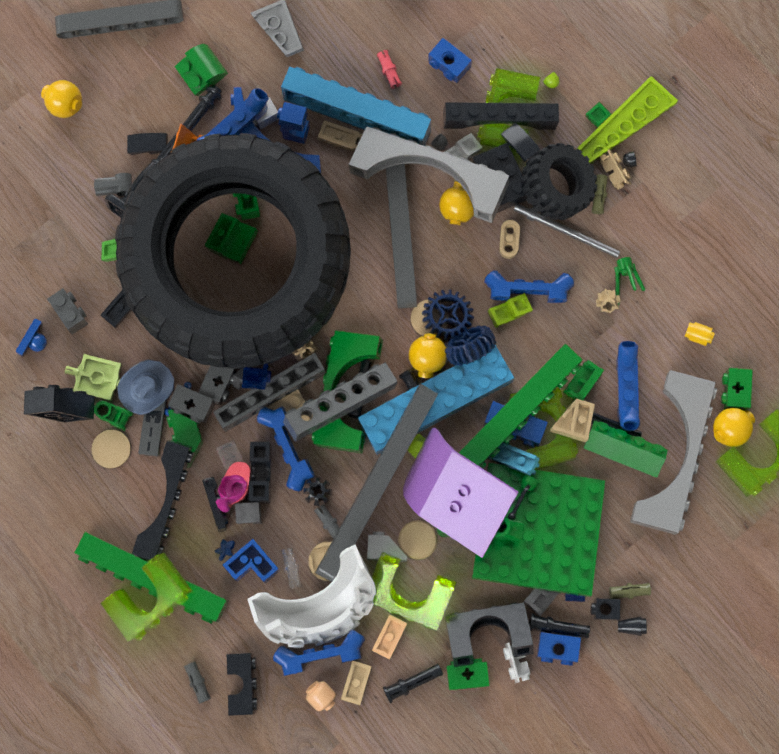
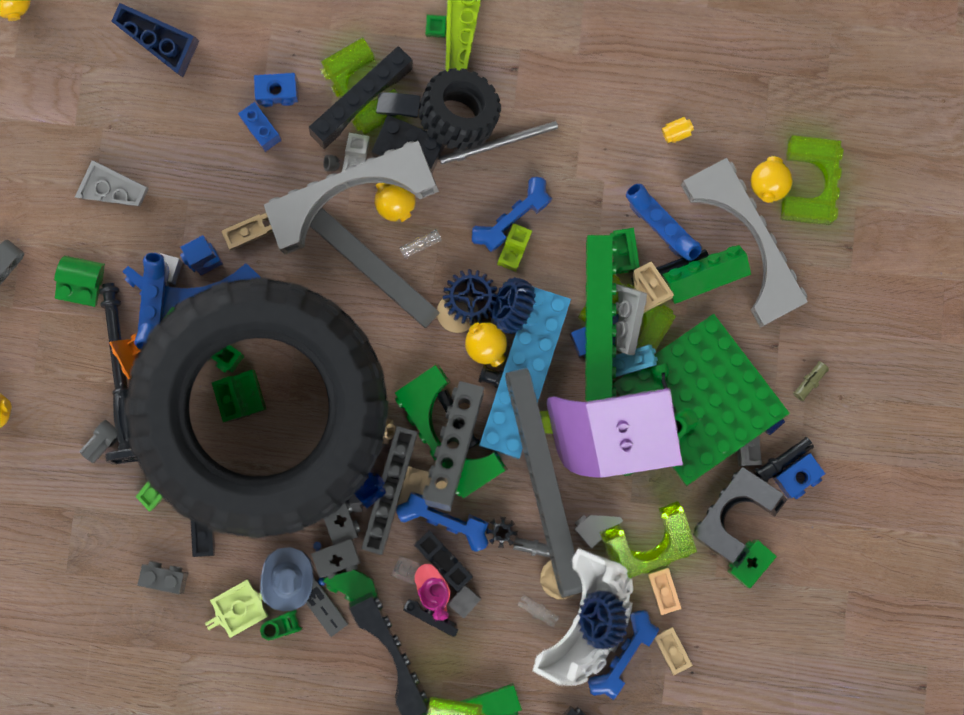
camera: 50 degrees left, 5 degrees up
(32, 339) = (156, 628): blue tile -> none
(59, 404) = (231, 661): black brick -> none
(111, 448) = (304, 654): tan piece -> none
(146, 143) = (93, 382): black slope -> none
(225, 549) = (473, 645): dark blue plant -> none
(249, 558) = (503, 631): blue brick -> none
(320, 696) = (656, 687): light nougat head -> none
(327, 612) = (603, 620): none -> dark blue gear
(353, 107) = (236, 198): dark azure brick -> none
(389, 69) = (233, 140): coral pin -> none
(403, 687) = (711, 618): black pin -> none
(414, 75) = (259, 126): none -> blue brick
(418, 539) = (613, 495): tan piece -> none
(448, 249) = (420, 243): none -> clear pin
(509, 240) = (461, 191): tan plate -> none
(517, 669) = (784, 522): white hinge -> none
(546, 422) = (630, 315): none -> light grey wing
(551, 80) = (374, 31): lime hinge -> none
(600, 195) = (505, 100): olive pin -> none
(608, 300) = (584, 169): tan gear -> none
(614, 605) = (815, 409): black brick -> none
(620, 175) = (498, 59): tan hinge -> none
(626, 268) = (573, 130): green plant -> none
(629, 159) = (494, 40): black hinge -> none
(633, 626) = (838, 406): black cone -> none
(743, 380) = (743, 137): green brick -> none

